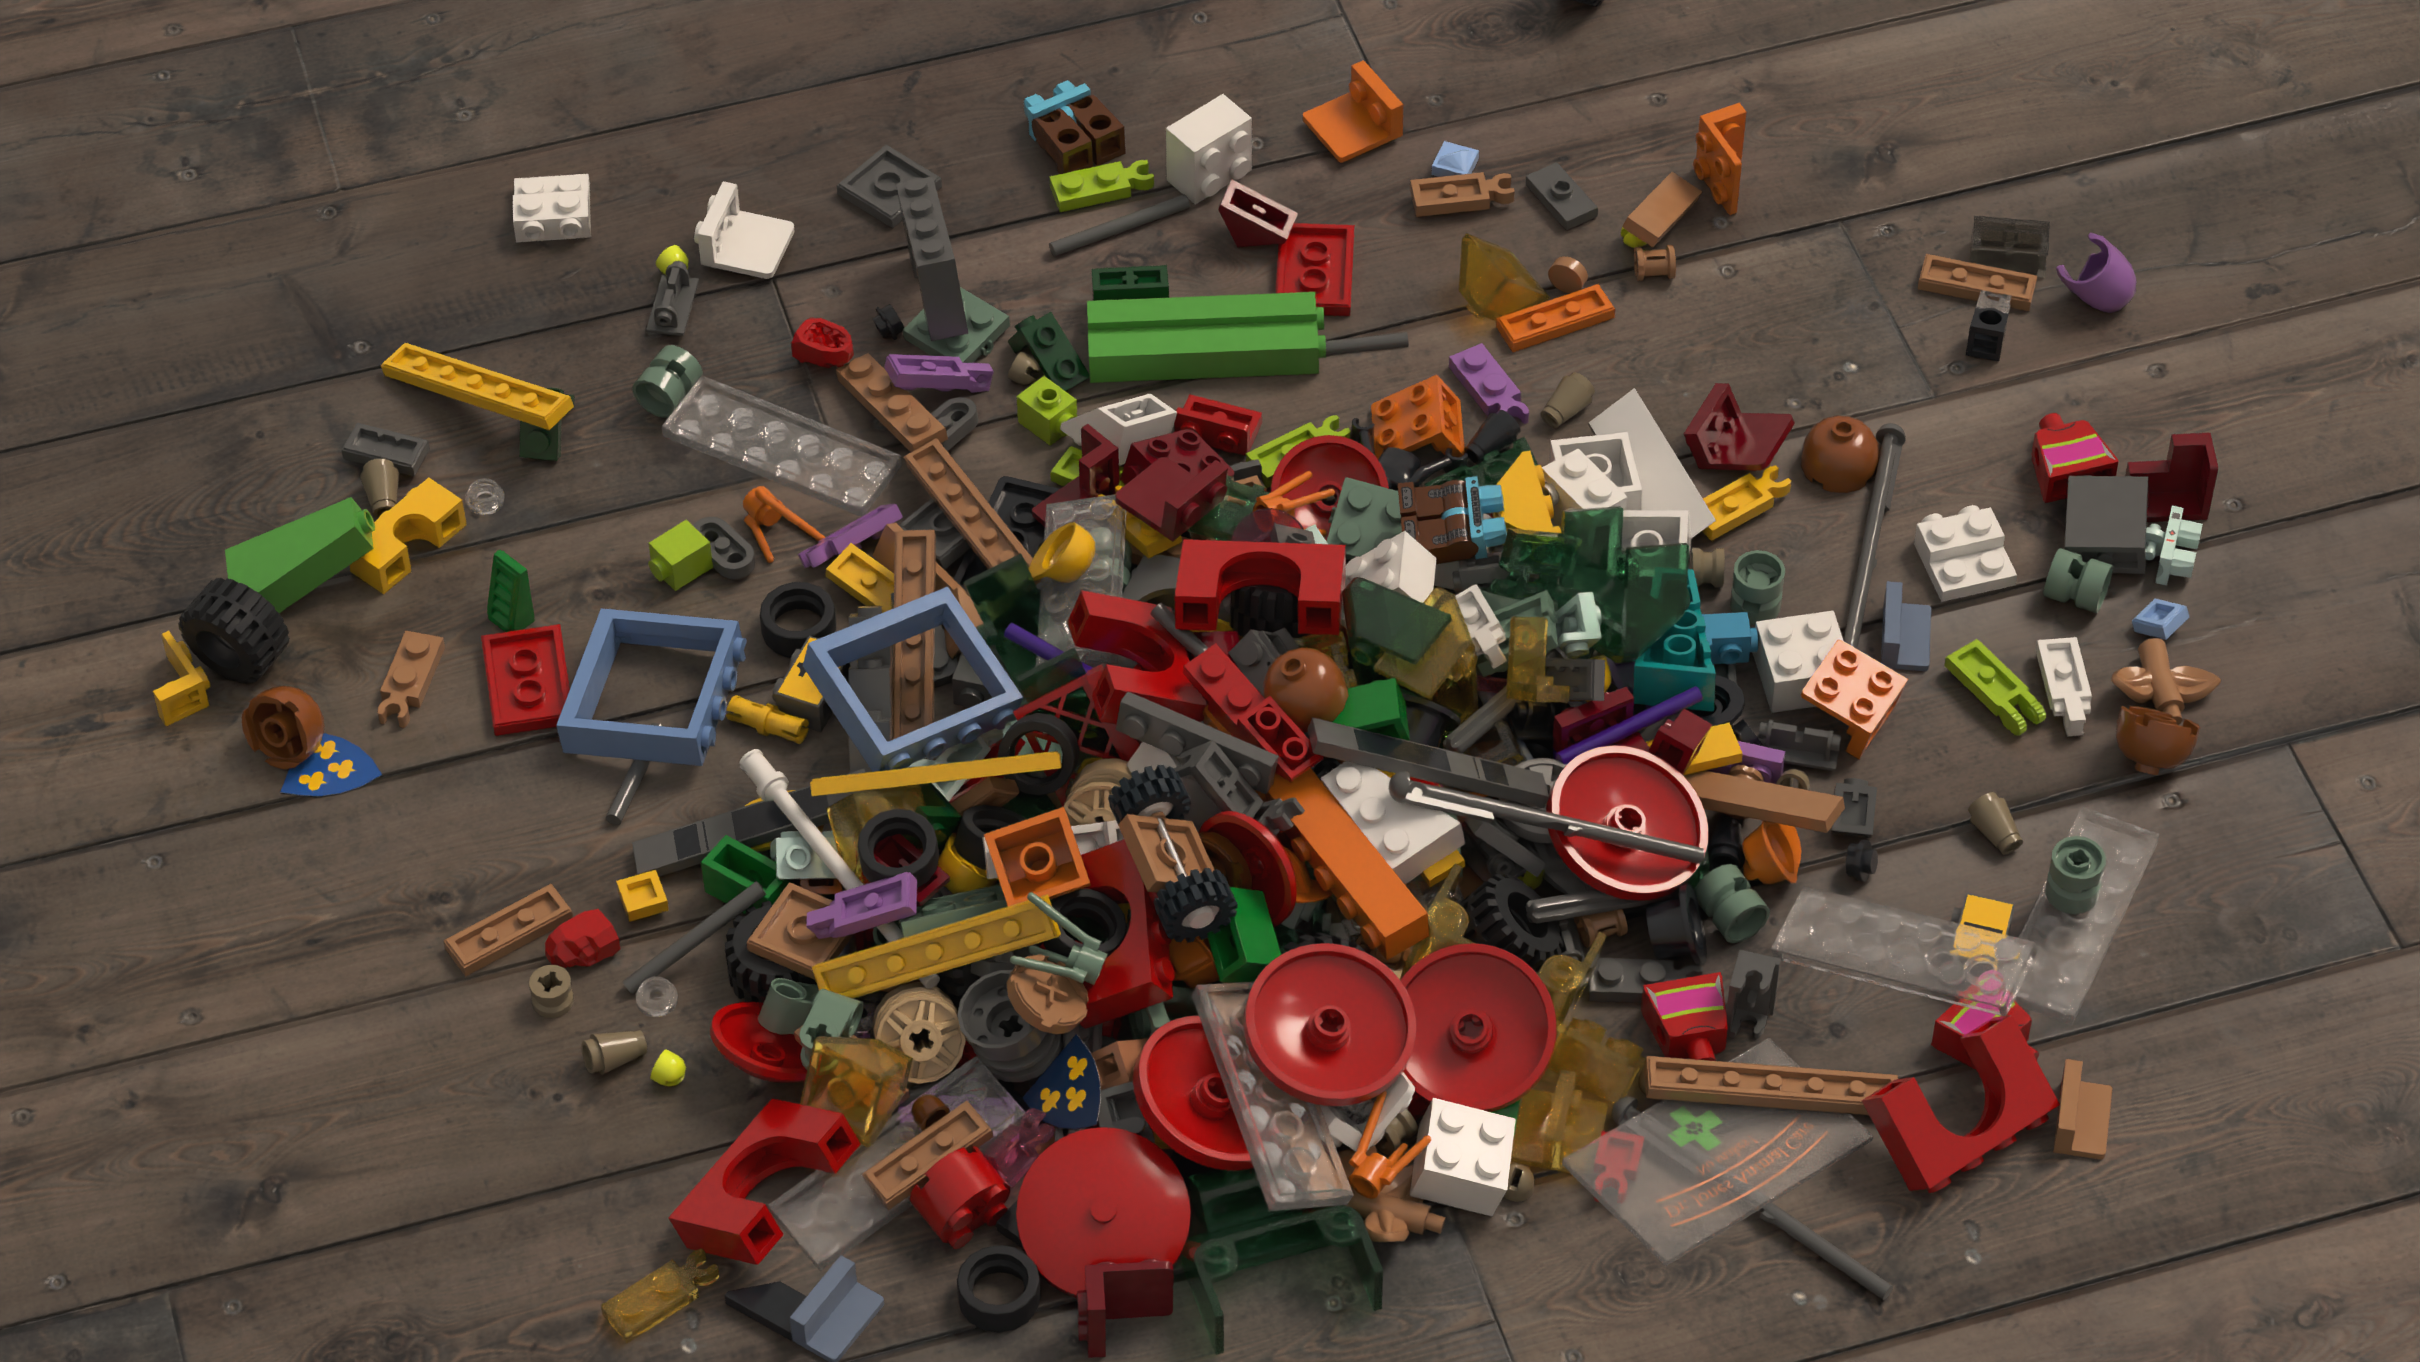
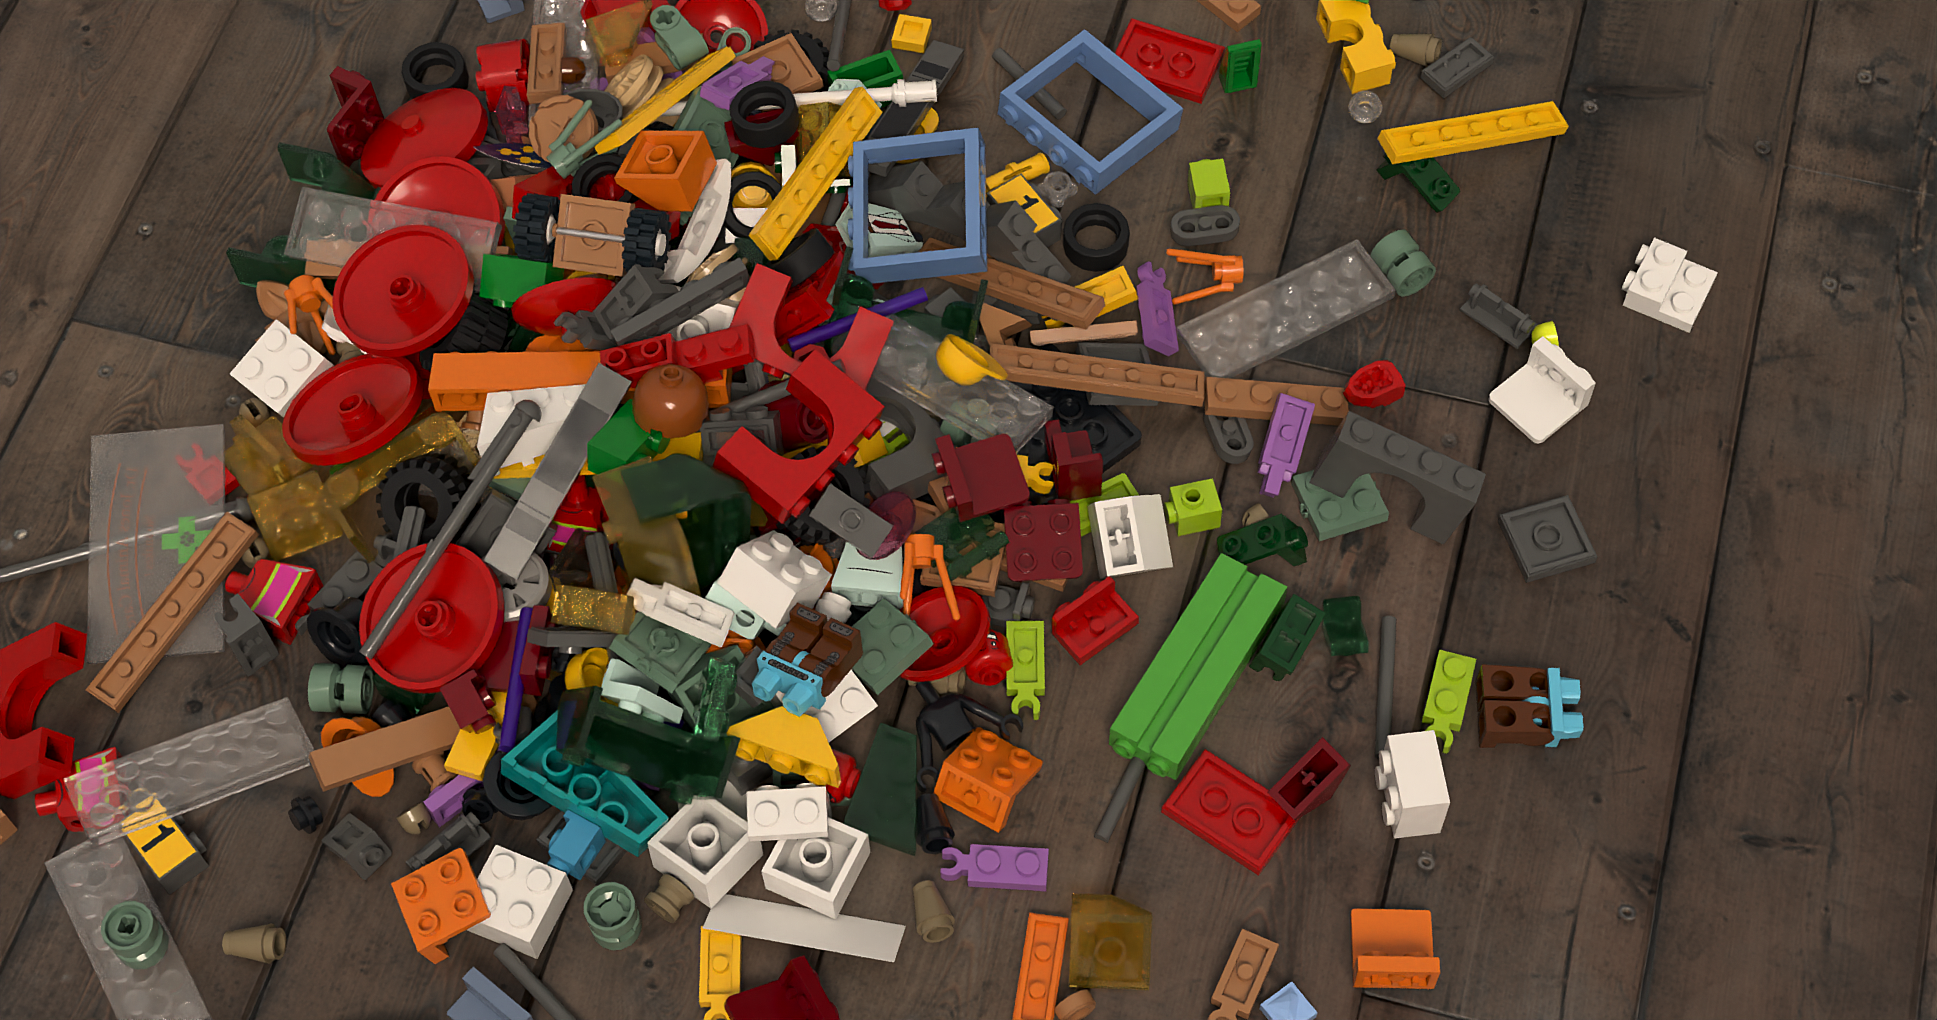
camera: 125 degrees right, 10 degrees up
(757, 682) = (1060, 181): none -> clear plate
(1092, 255) = (1344, 626): none -> clear green bracket

